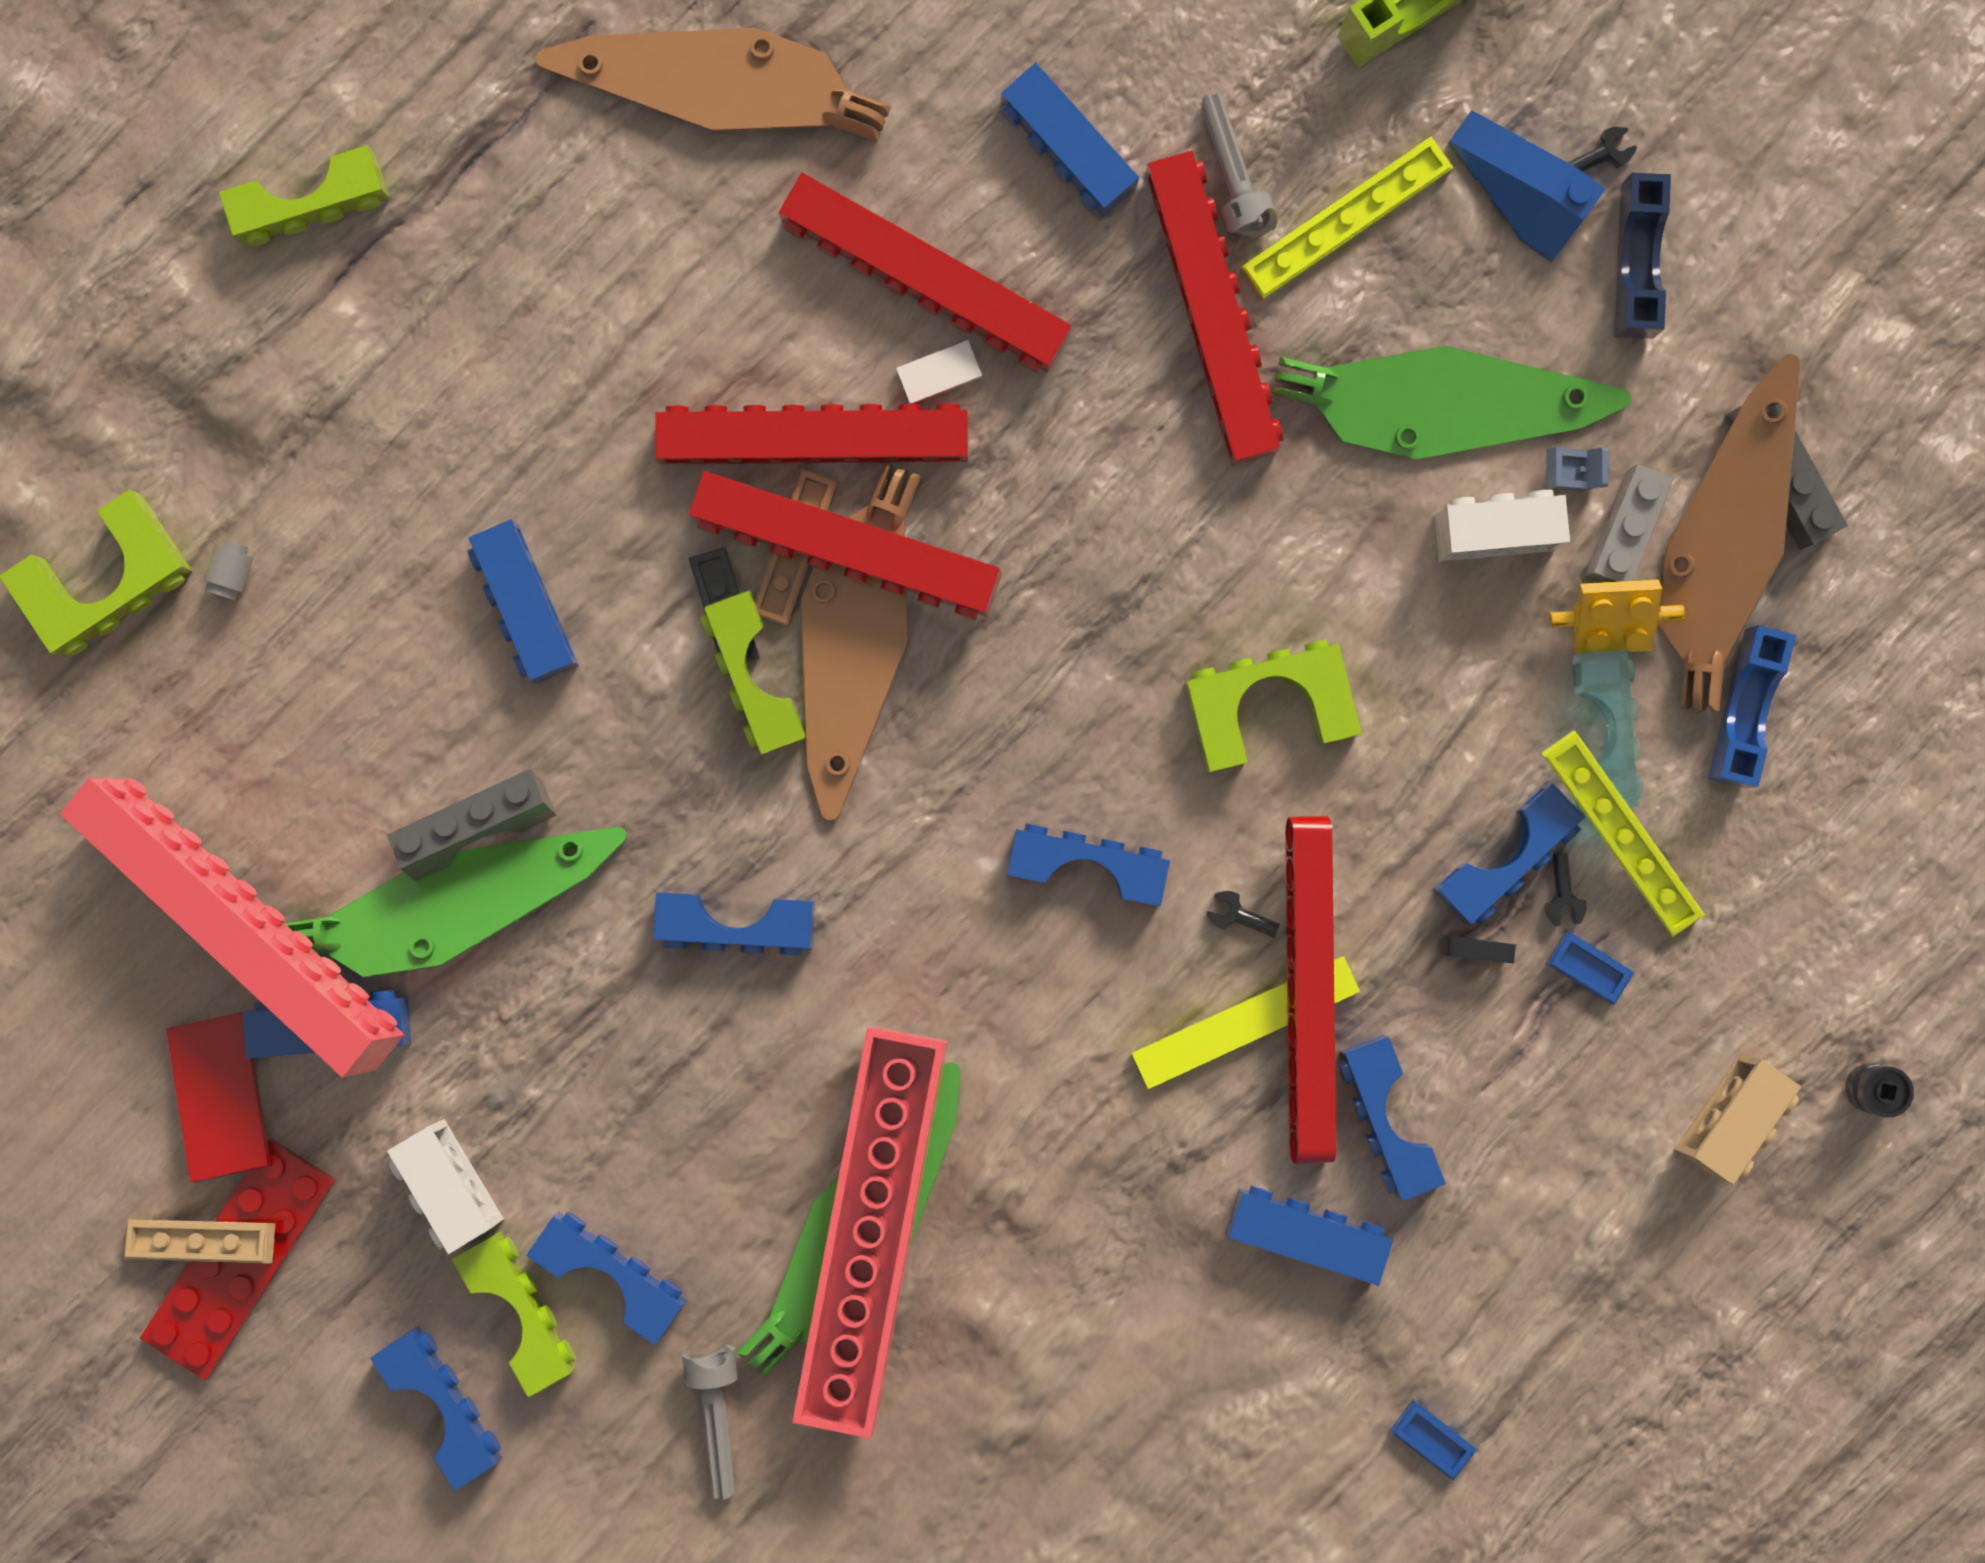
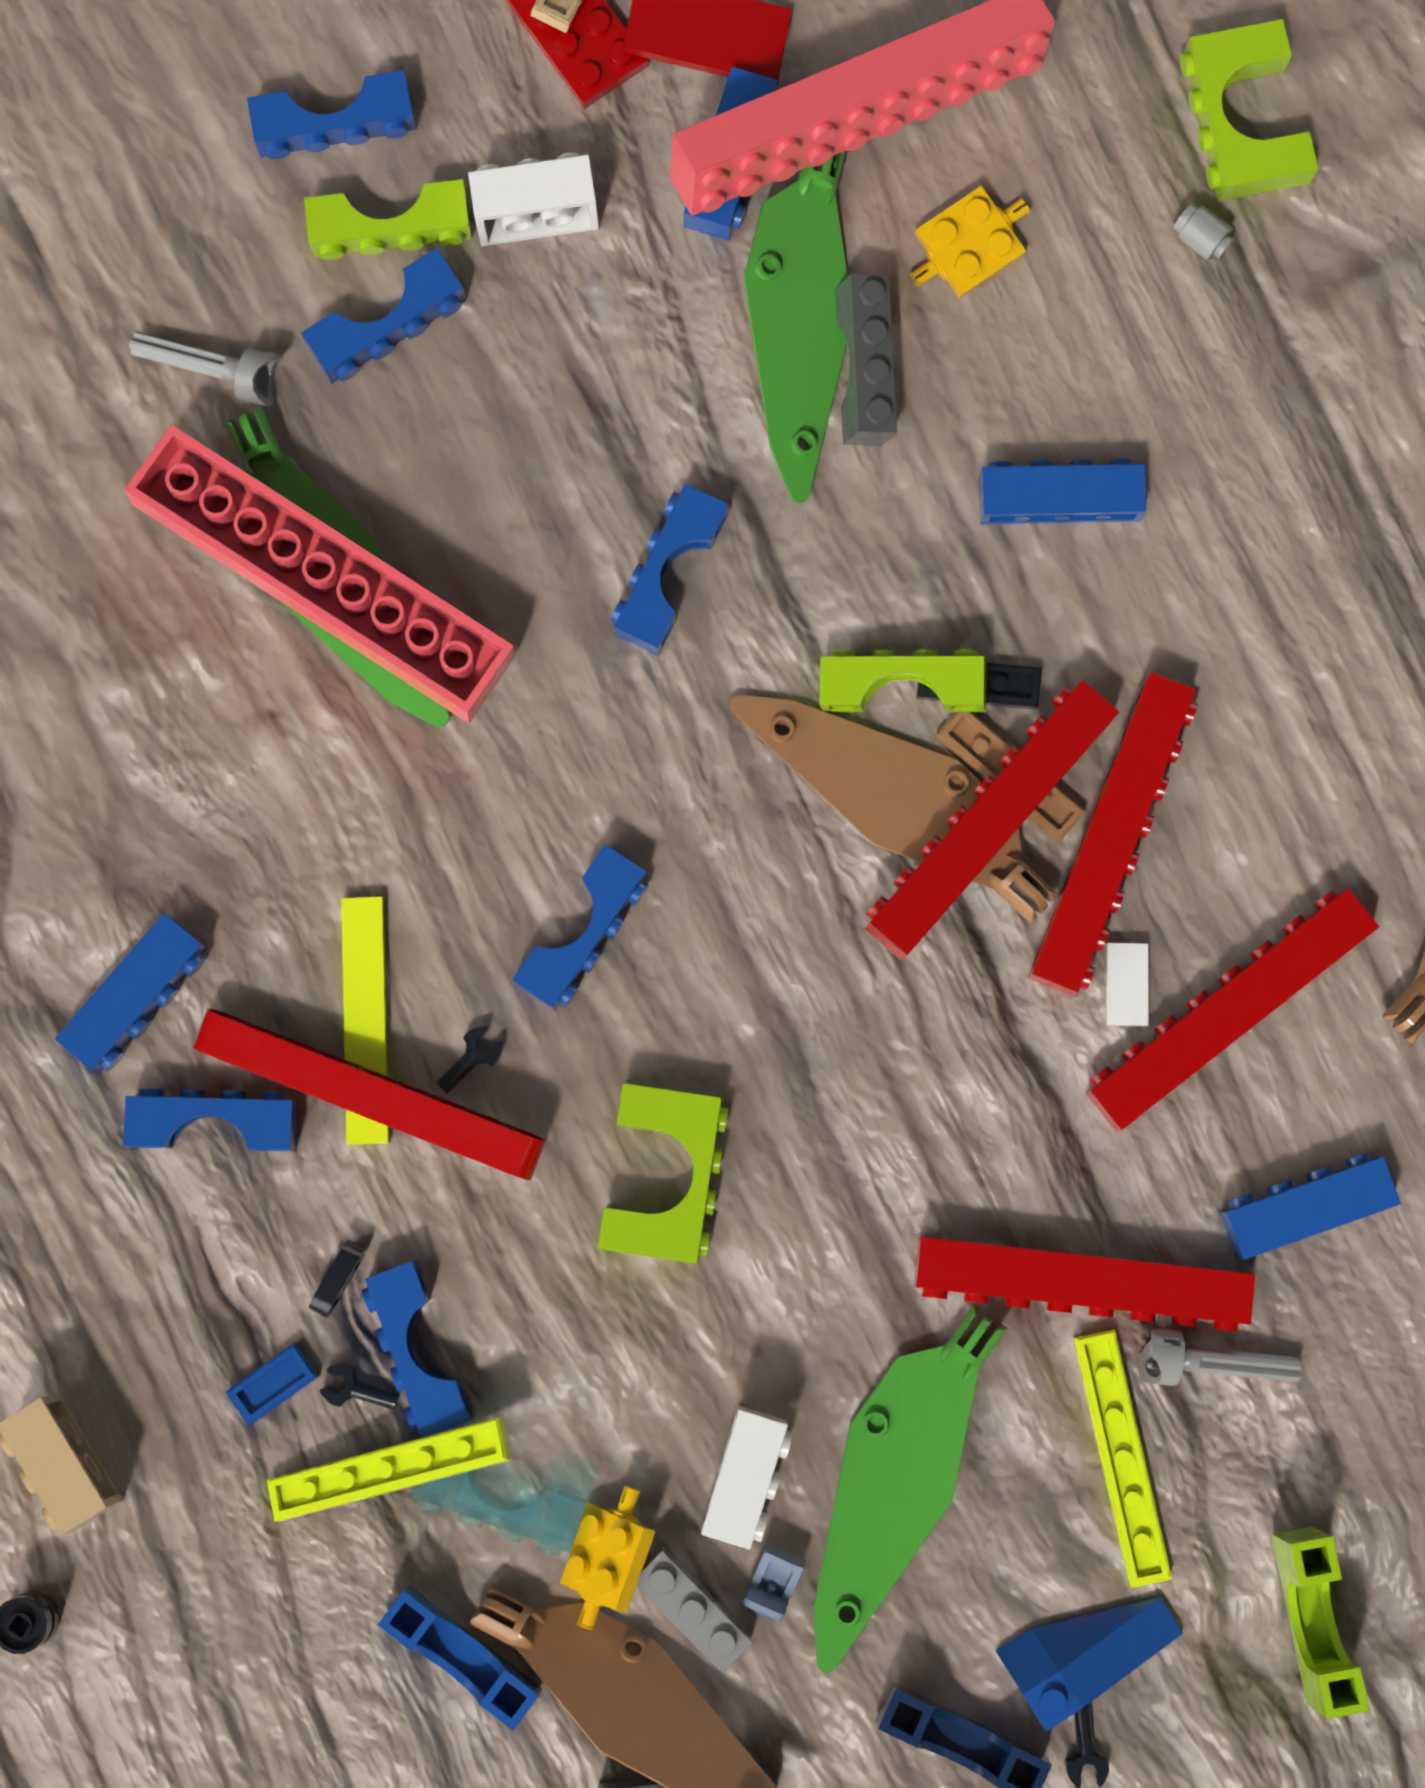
camera: 115 degrees right, 5 degrees down
(322, 777) = (969, 242): none -> yellow plate

